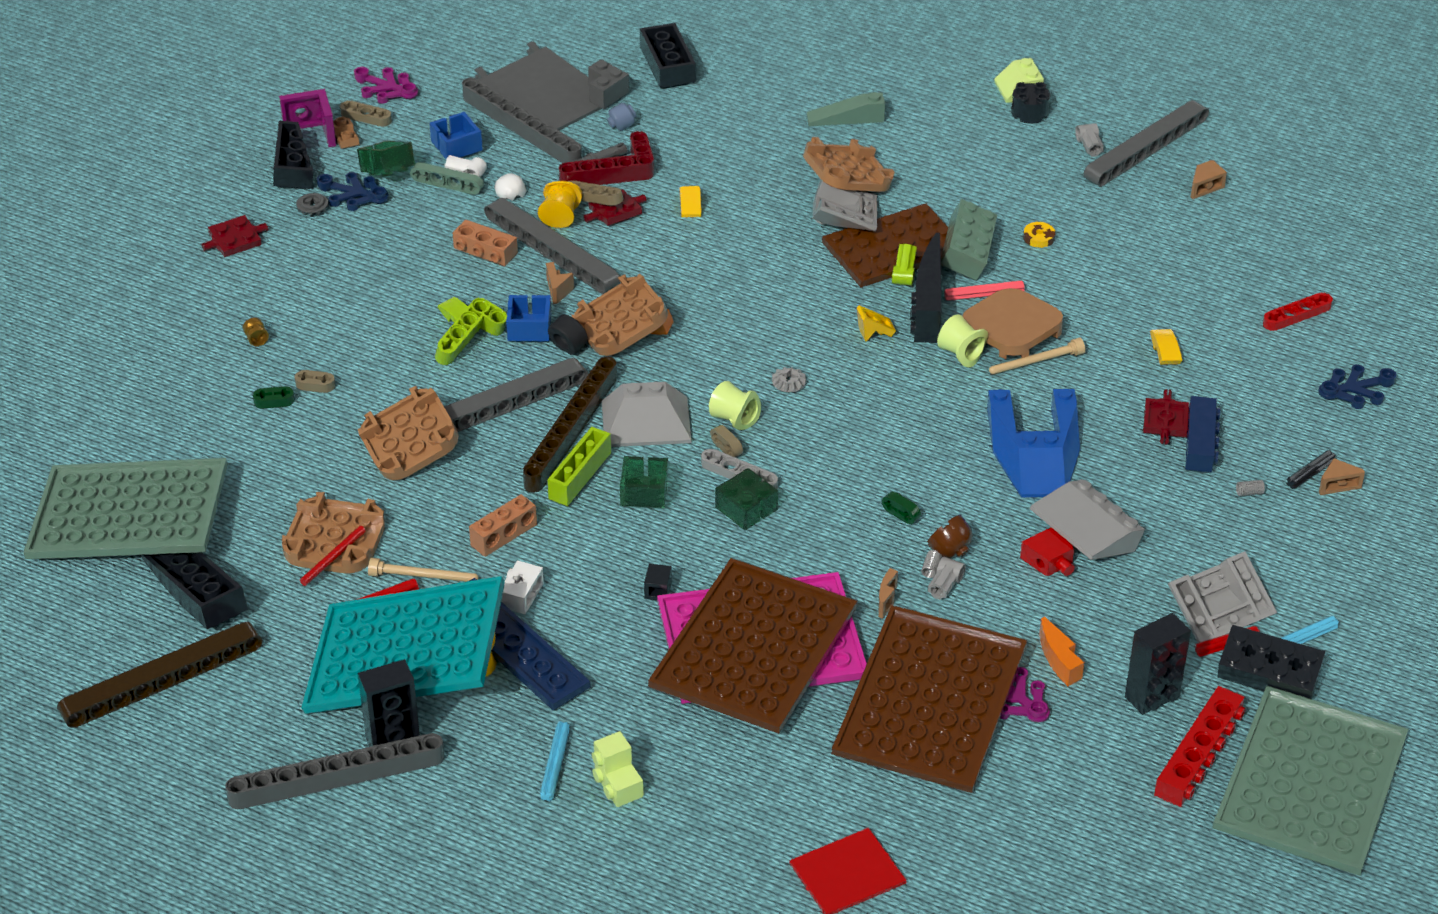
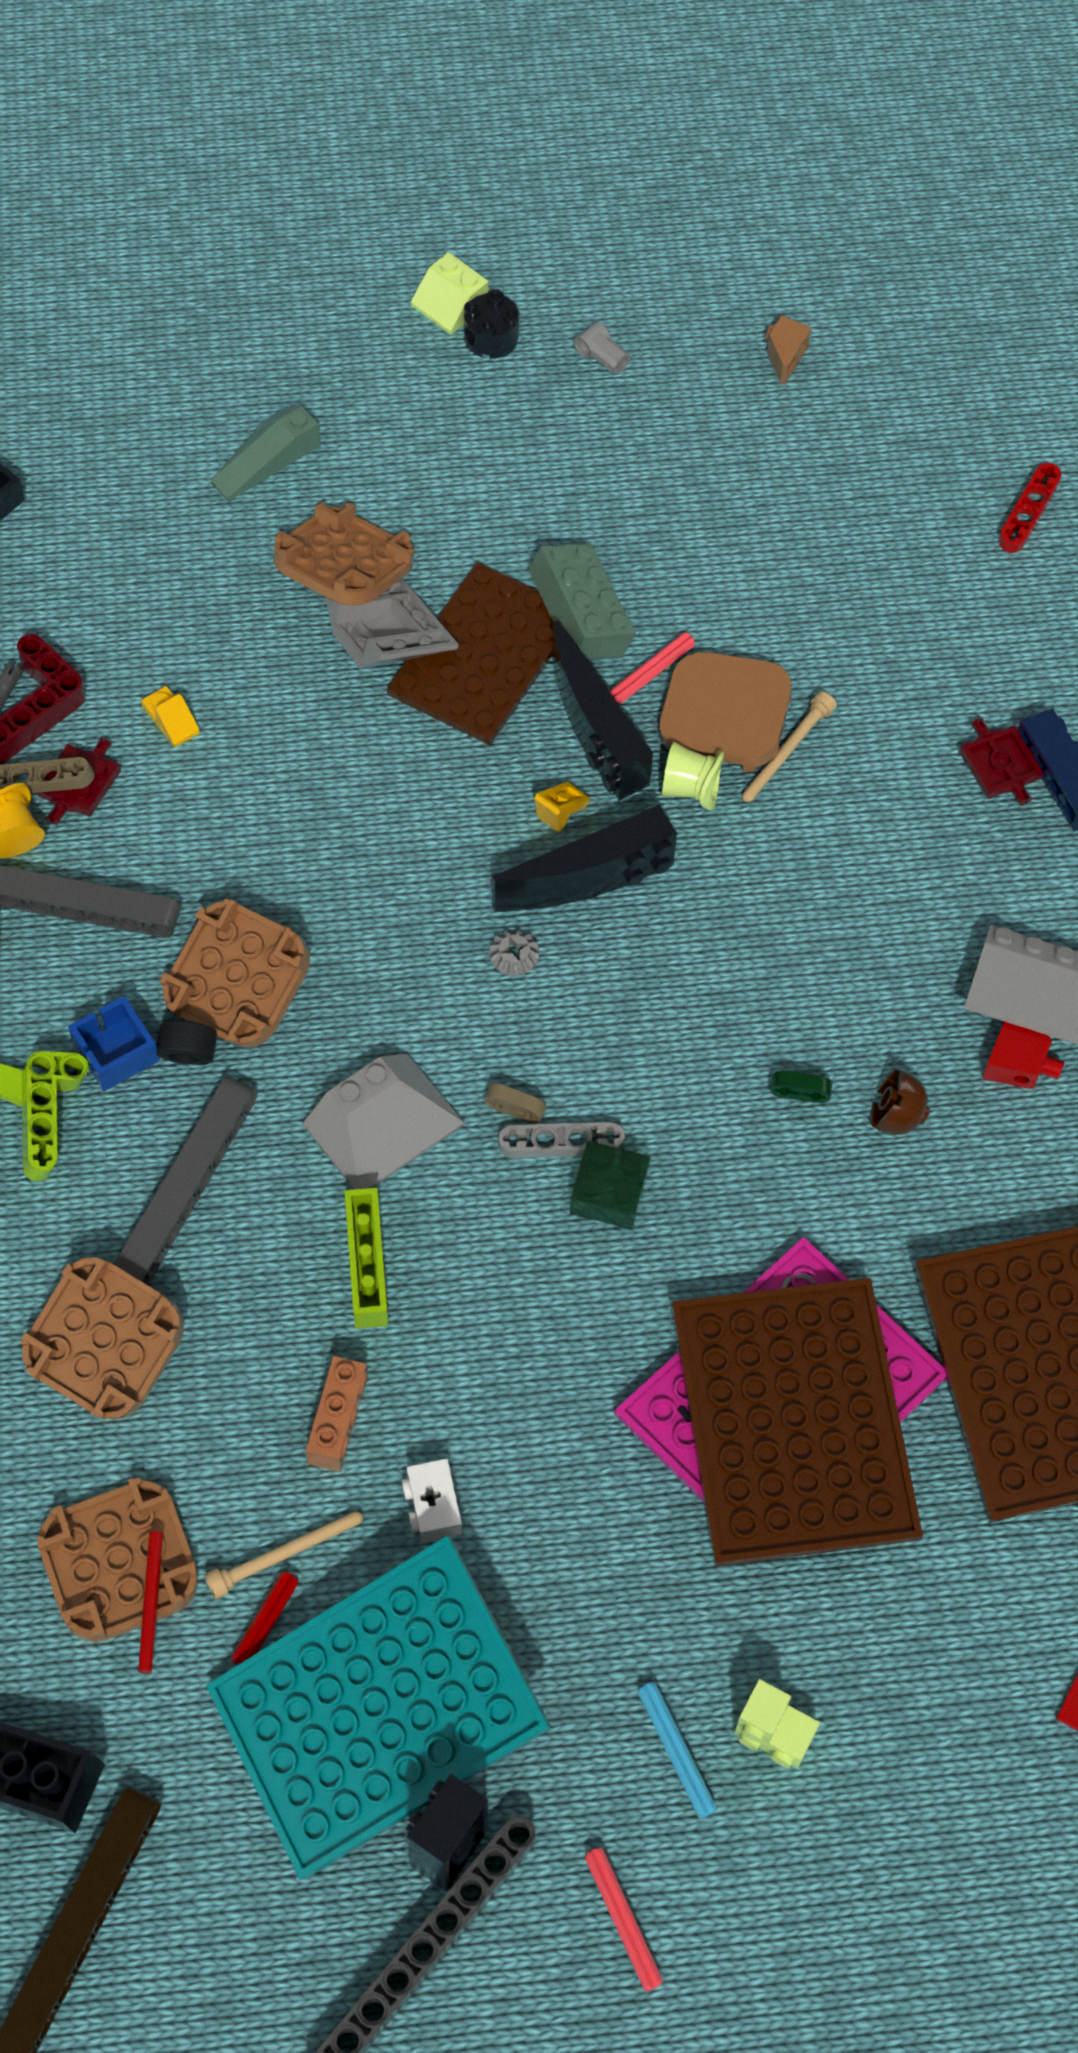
camera: 35 degrees left, 20 degrees up
(456, 817) = (623, 1919): none -> coral axle
(535, 661) = (524, 1603): dark blue plate -> none
(559, 284) = (103, 960): medium nougat slope -> none
(569, 424) = (296, 1202): dark brown beam -> none
(644, 490) = (468, 1243): clear green piece -> none
(657, 581) = (597, 1385): black brick -> none
(735, 405) = (491, 1042): yellowish green hat -> none
(862, 352) = (590, 865): none -> black slope
(887, 592) = (881, 1239): medium nougat slope -> none
(904, 270) = (534, 694): lime piece -> none
(929, 567) = (903, 1164): light grey piece -> none
(947, 574) = (929, 1158): light grey piece -> none
(1035, 459) = (893, 907): blue wedge -> none
(1039, 234) = (648, 551): yellow piece -> none
(1146, 143) = (675, 323): dark grey beam -> none
(1166, 346) = (930, 650): yellow slope -> none

